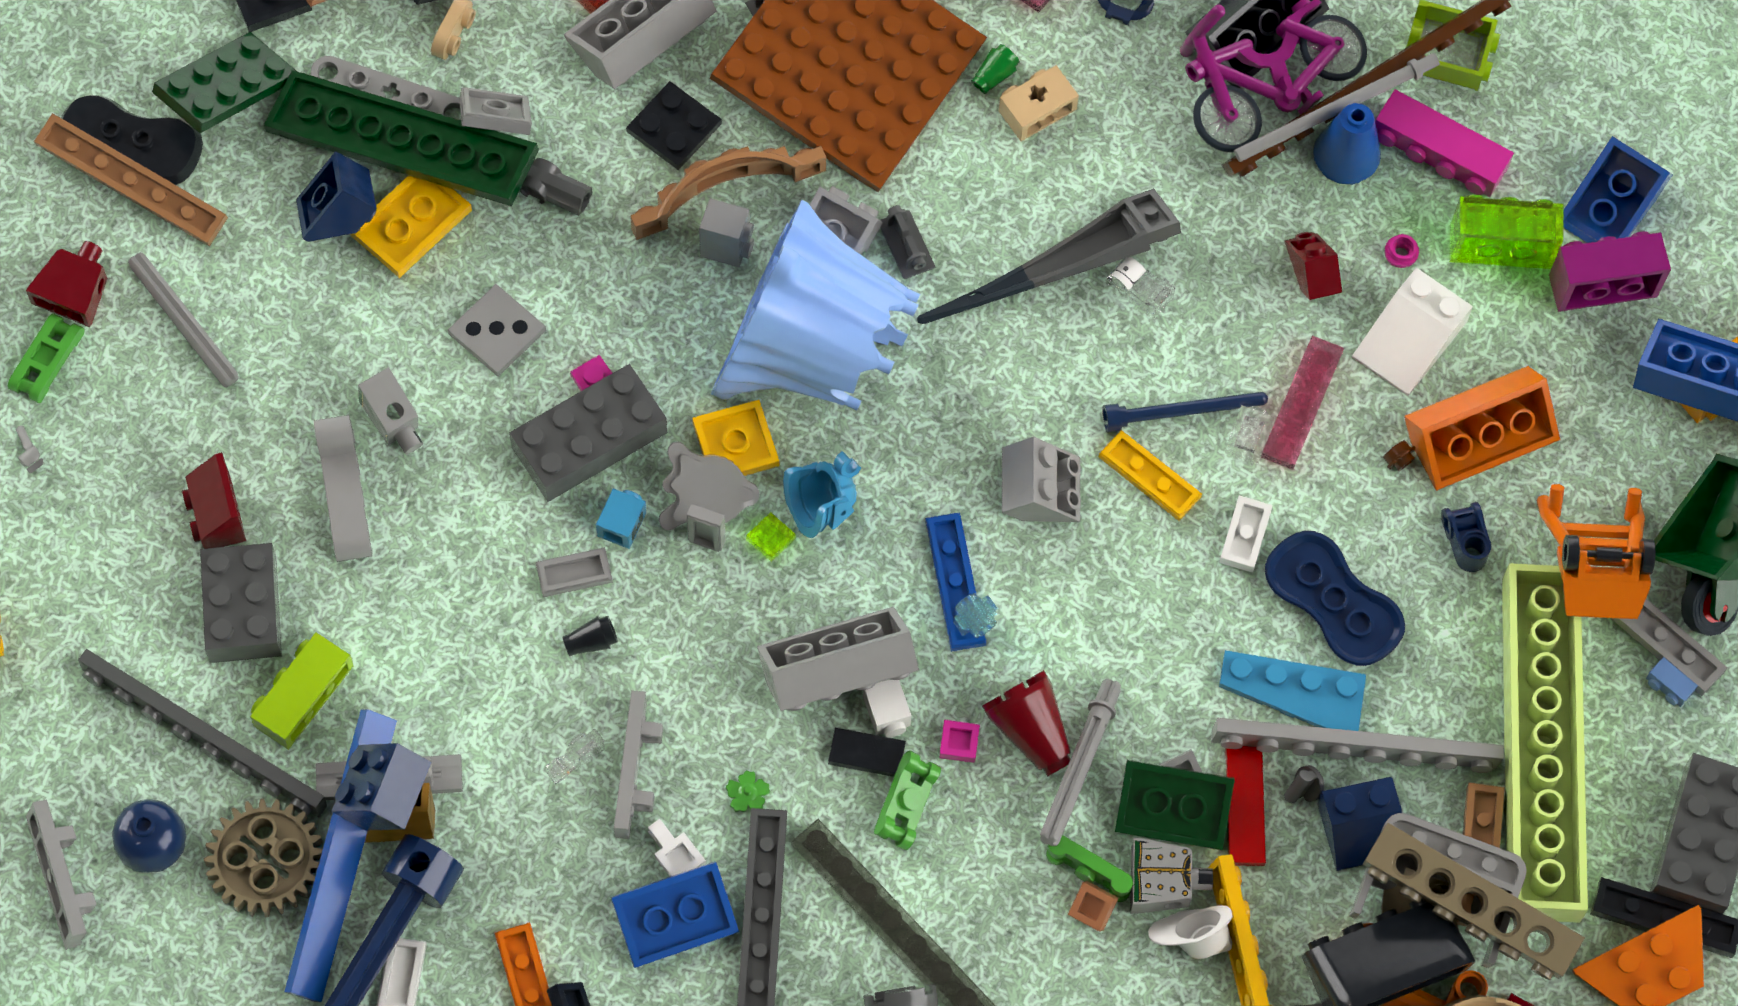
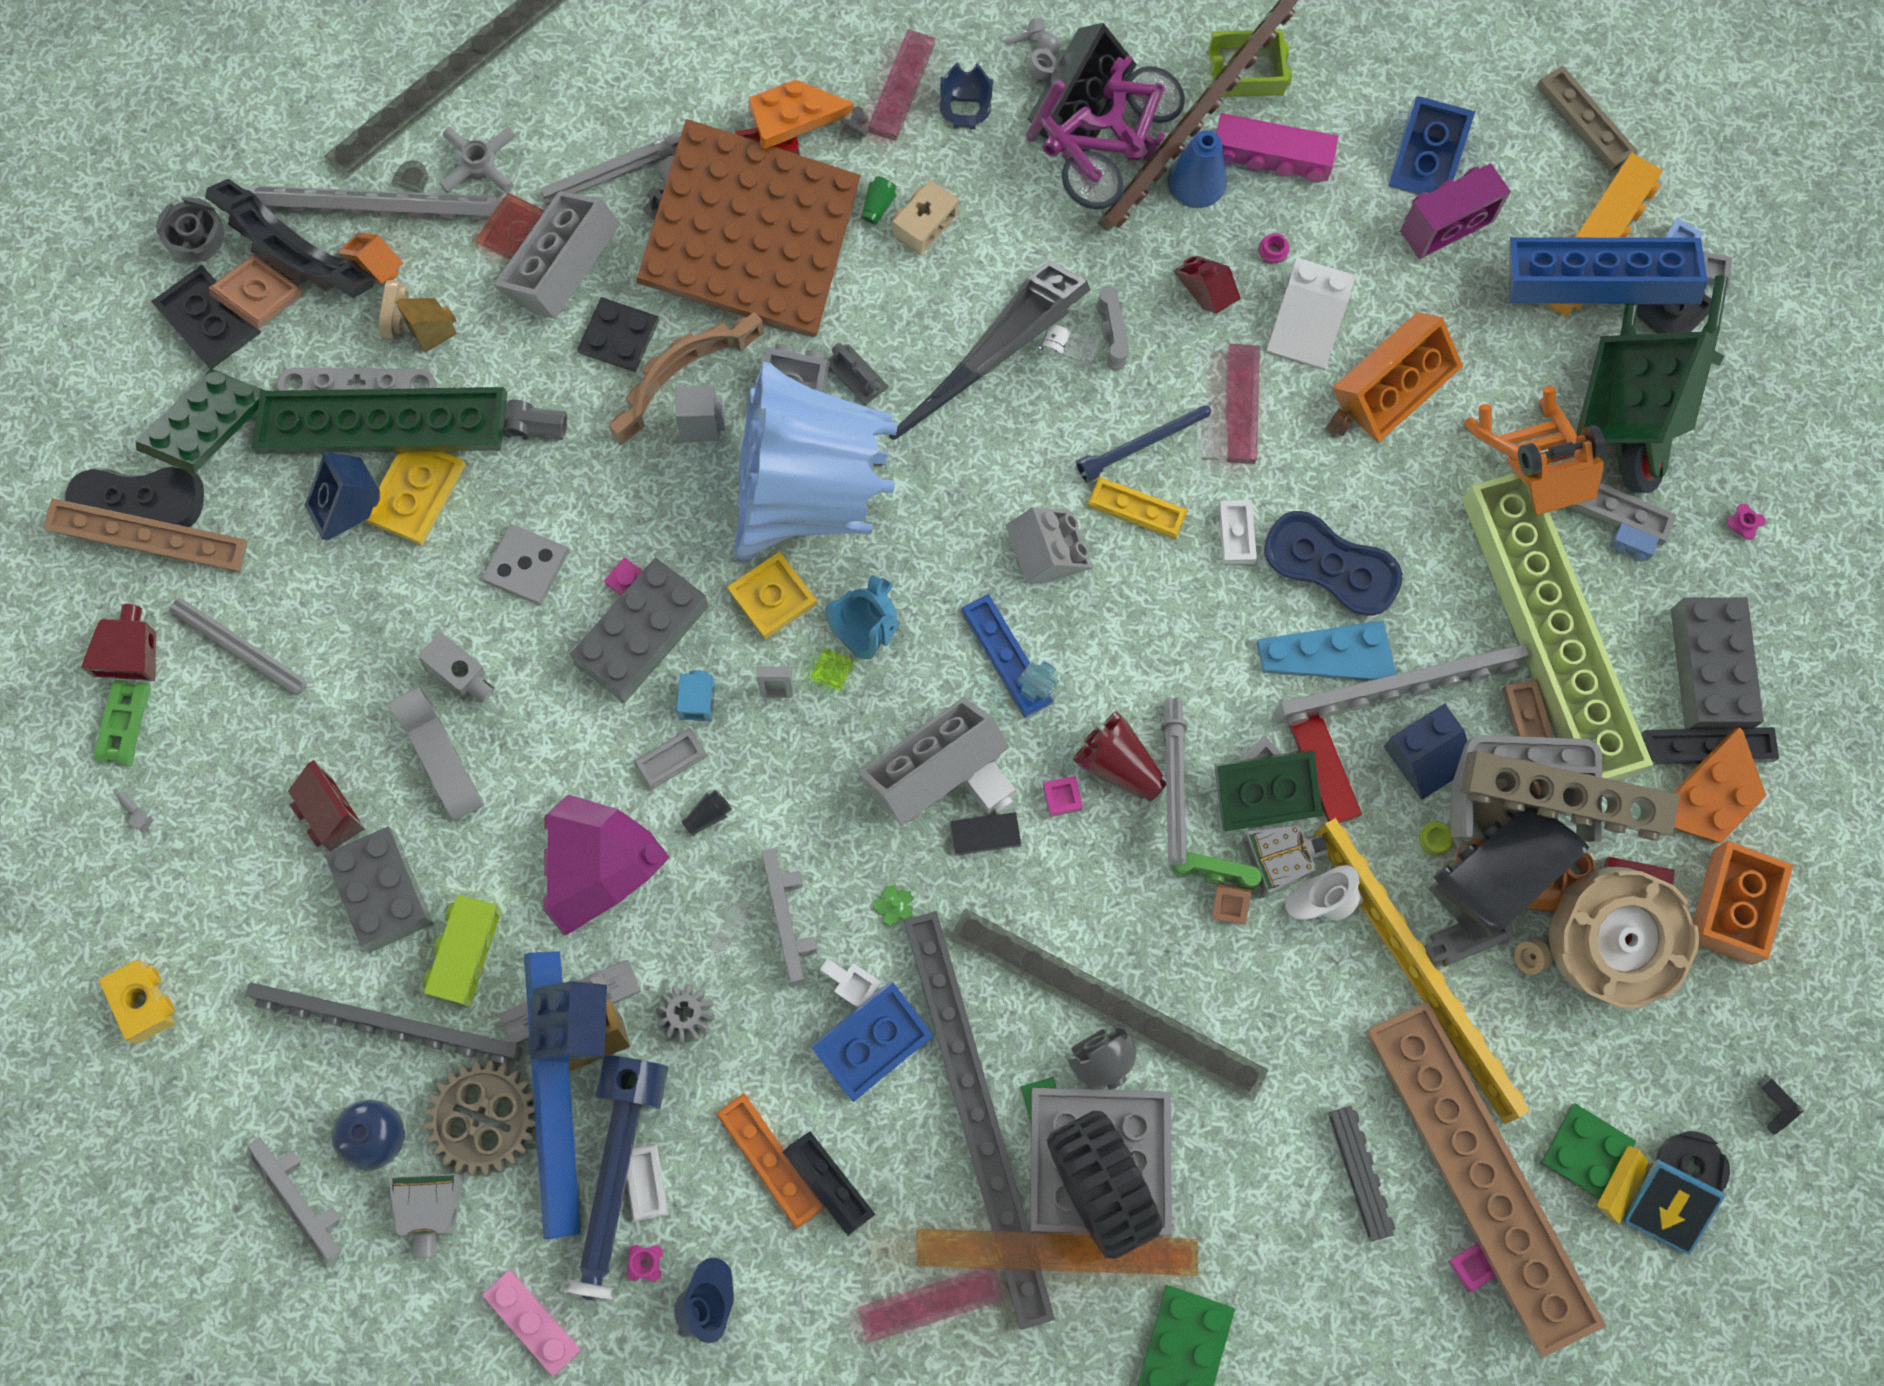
camera: 20 degrees left, 5 degrees up
(181, 923) = (425, 1208): none -> light grey torso
(461, 644) = (593, 860): none -> magenta brick
(484, 51) = (427, 321): none -> pearl gold slope
(490, 838) = (695, 1005): none -> light grey gear
(495, 111) = (456, 370): light grey tile -> none
(704, 482) = (759, 642): light grey tile -> none
(906, 800) = (1036, 865): bright green plate -> none
(1193, 280) = (1113, 327): none -> light grey plate
(1307, 784) = (1371, 732): dark grey plate -> none
(1334, 914) = (1436, 838): none -> lime tile
(1413, 70) = (1235, 89): light grey bar -> none
(1466, 530) = (1419, 467): dark blue piece -> none
(1506, 232) = (1358, 204): clear neon green brick -> none

